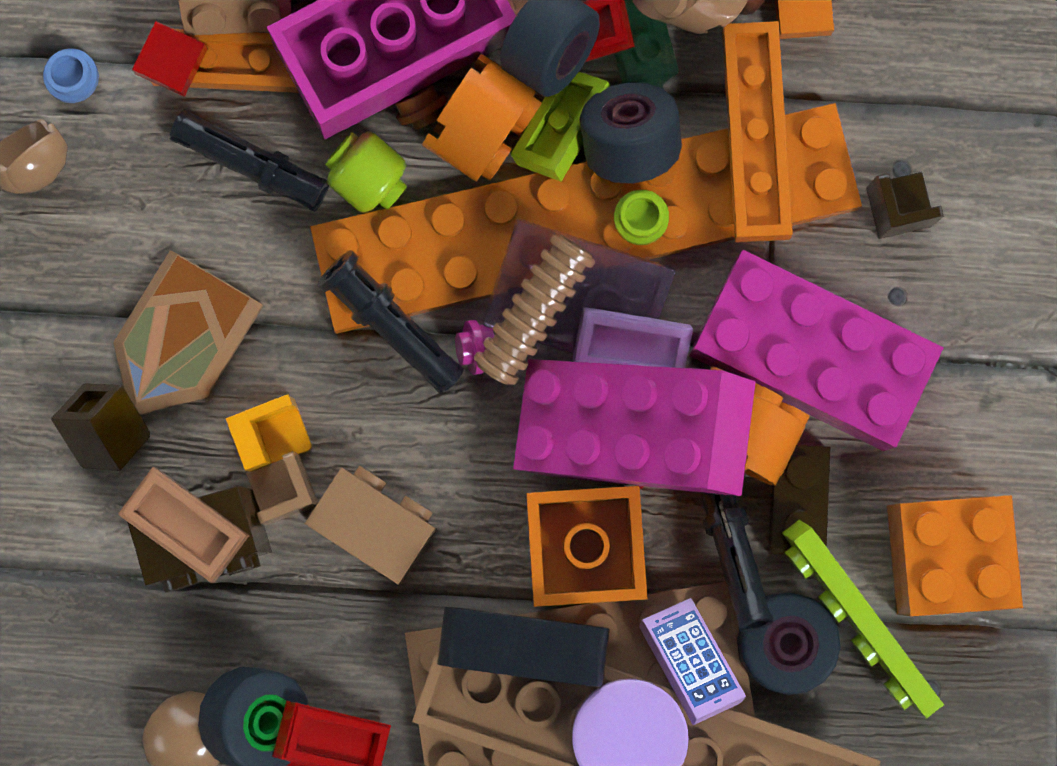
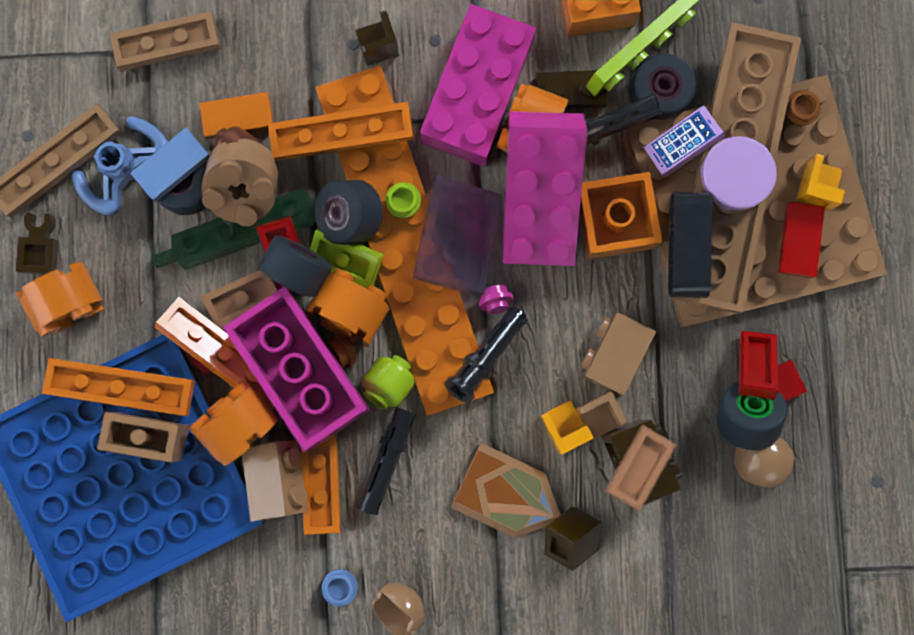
camera: 90 degrees left, 0 degrees up
(170, 59) = (325, 519): red tile -> none
(534, 310) = (473, 259): medium nougat piece -> none
(631, 340) = (485, 199): lavender tile -> none

